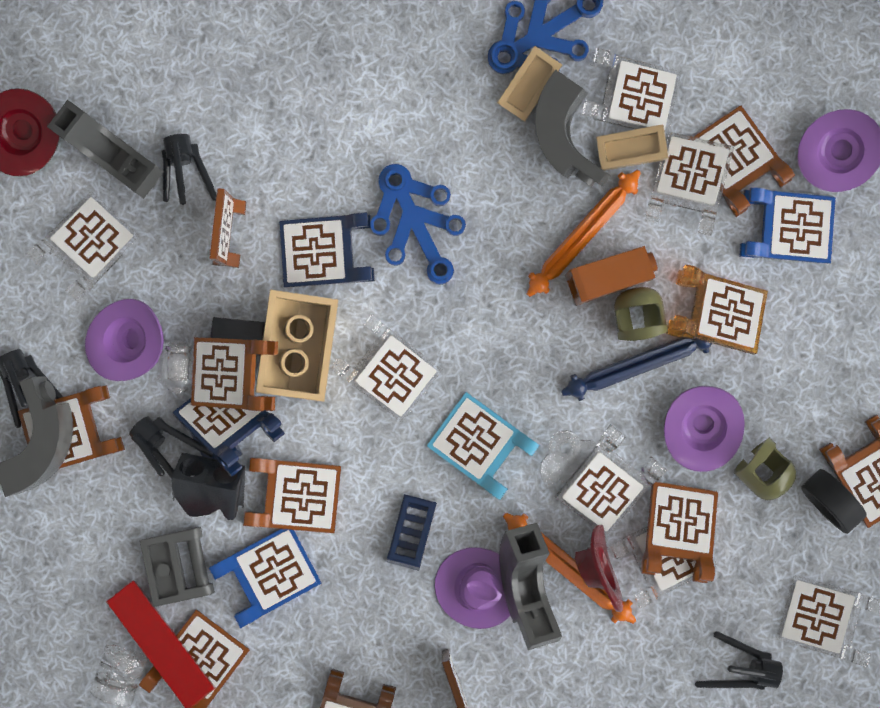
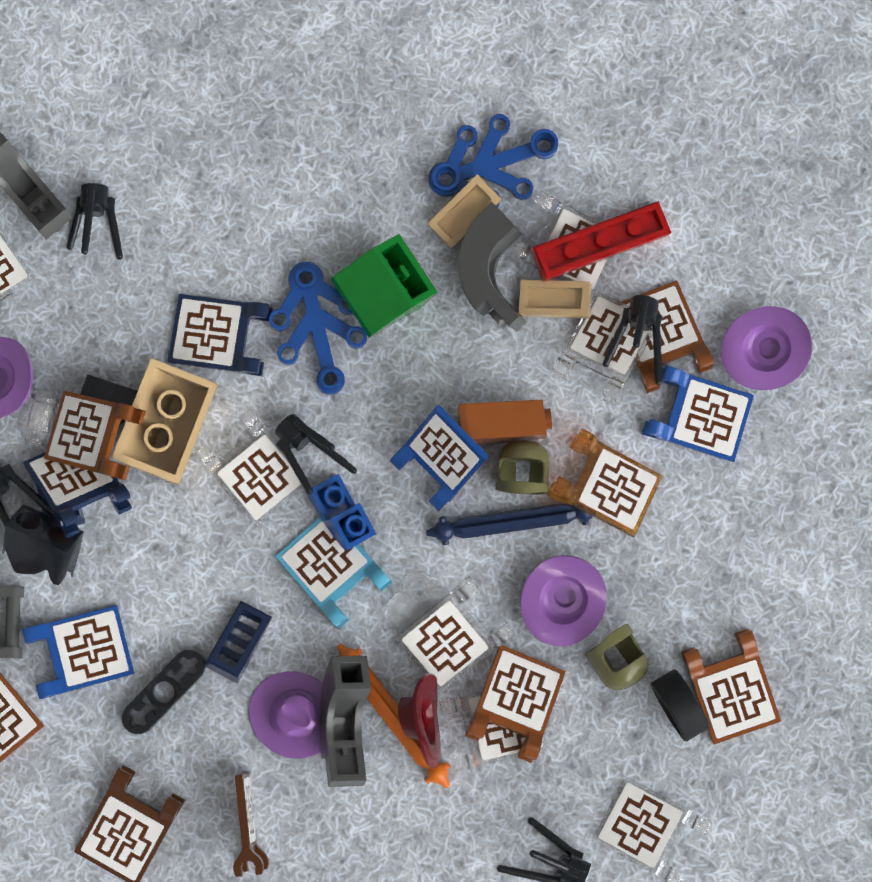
camera: 20 degrees right, 5 degrees down
(222, 226) = (117, 286): dark orange flag -> none
(297, 496) = (130, 577): flag -> none
(348, 620) = (151, 717): none -> black beam
(421, 329) = (297, 435): none -> black plant
(471, 171) = (384, 285): none -> green slope
(477, 393) = (340, 514): none -> blue slope
(566, 317) = (444, 453): none -> flag
(583, 233) = (490, 370): orange wheel -> none
(663, 84) = (600, 241): none -> red tile
(721, 147) = (641, 315): none -> black plant

